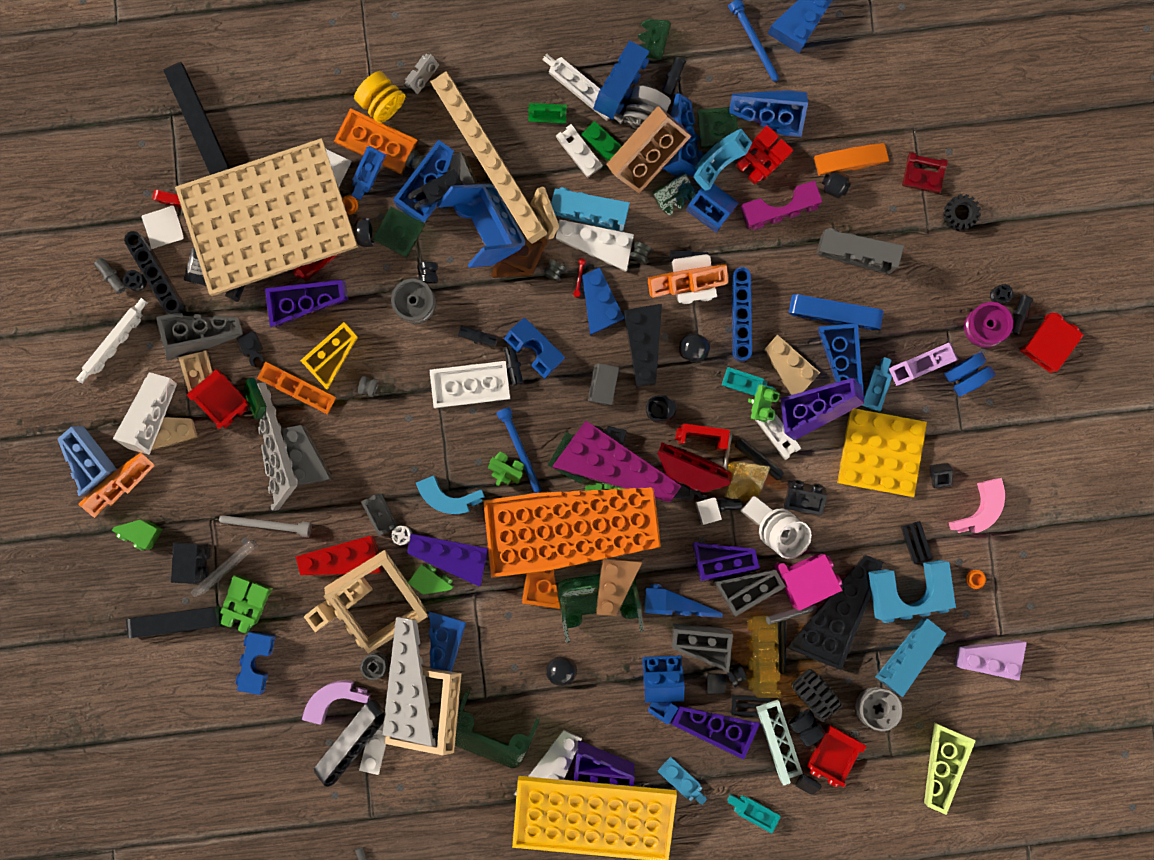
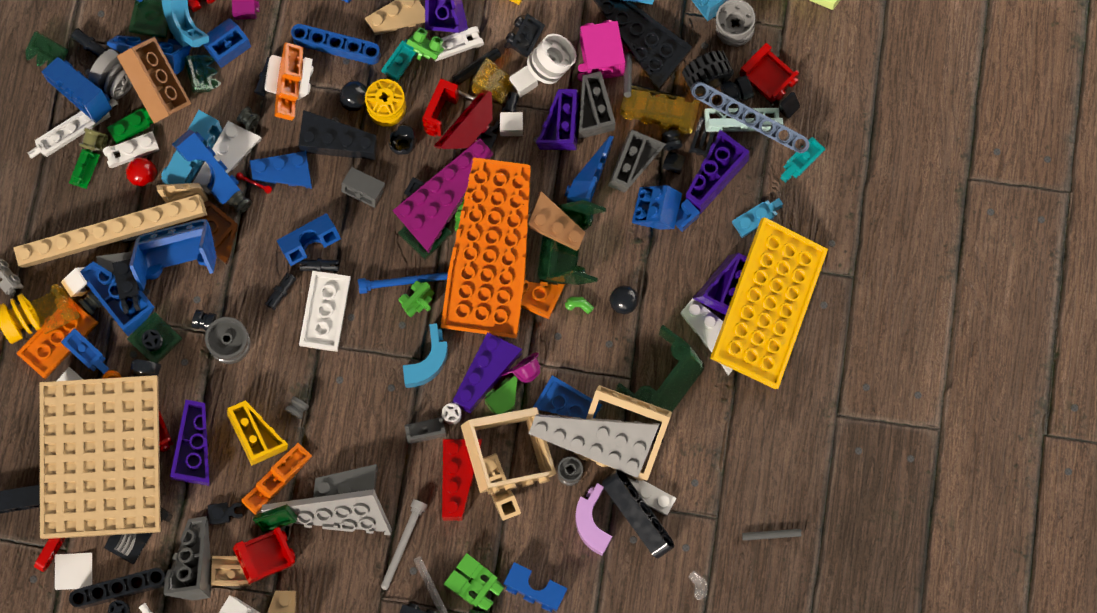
camera: 75 degrees left, 10 degrees down
(301, 820) = (700, 585): none -> clear arm
(391, 227) = (150, 336): none -> black wheel
(401, 130) = (55, 309): none -> clear yellow hinge
(429, 140) = (75, 283): none -> white panel
(463, 593) = (526, 369): none -> magenta piece
(546, 627) = (573, 302): none -> bright green arm
(559, 167) = (141, 171): none -> red hair
(575, 112) = (94, 140): none -> olive piece
(586, 208) = (220, 183): none -> blue arch
(691, 392) = (387, 112): none -> yellow wheel
(773, 760) = (758, 120): none -> sand blue beam

